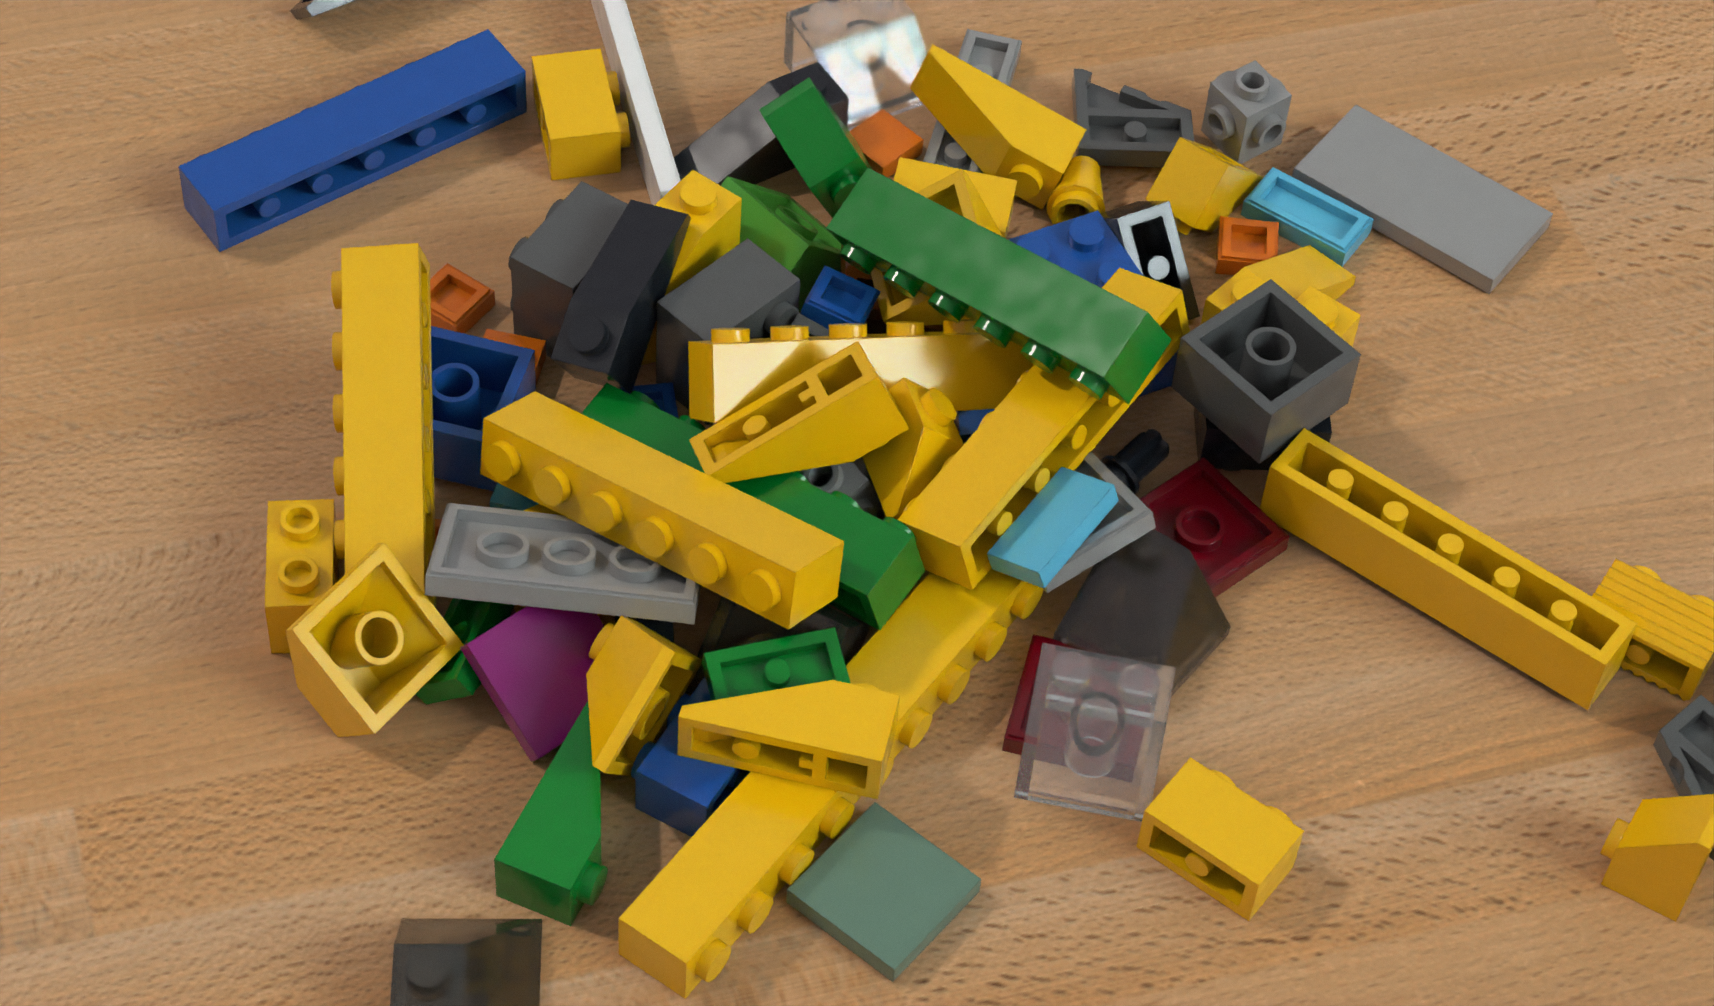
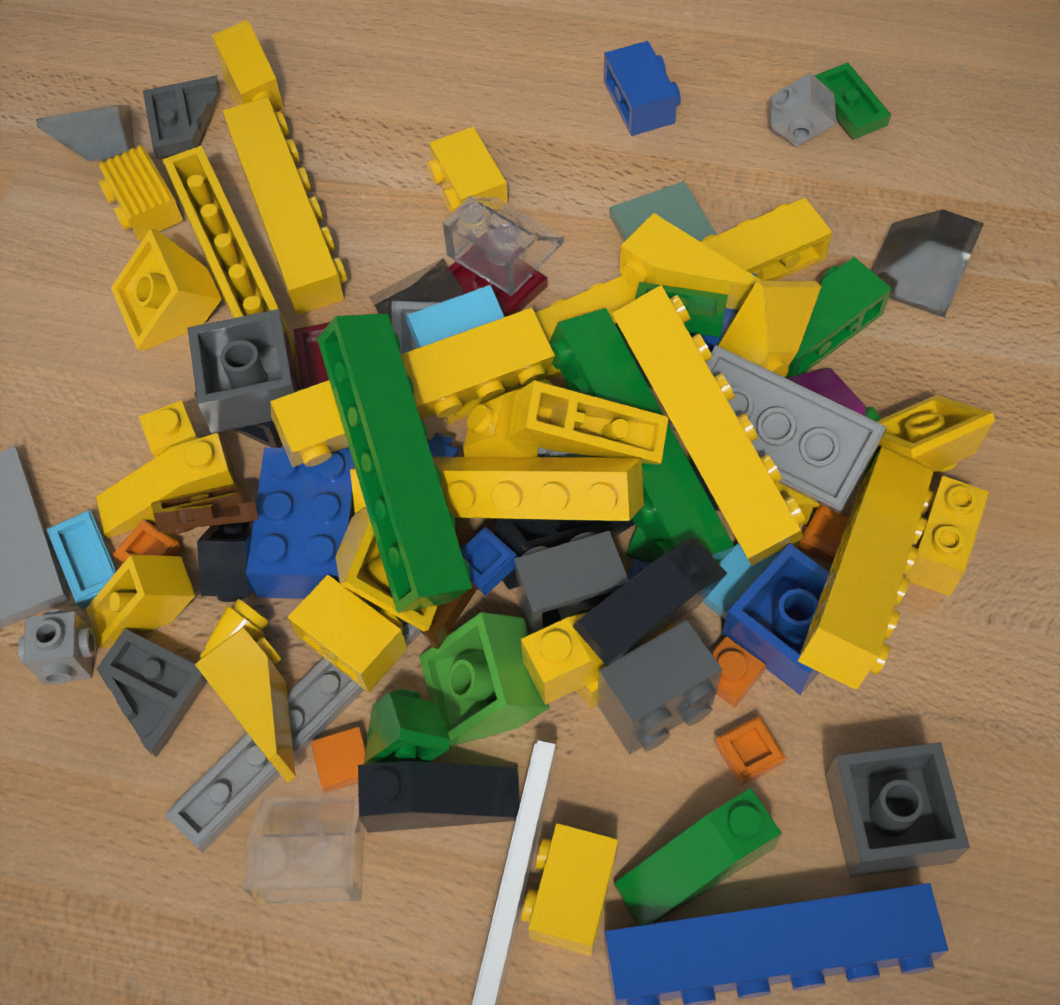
camera: 145 degrees left, 10 degrees up
(266, 268) = (896, 809): none -> dark grey brick
(454, 187) = (699, 858): none -> green slope
(1196, 253) = (205, 508): none -> reddish brown wing
(1453, 693) = (283, 205): none -> yellow brick
(1489, 496) = (163, 292): none -> yellow slope

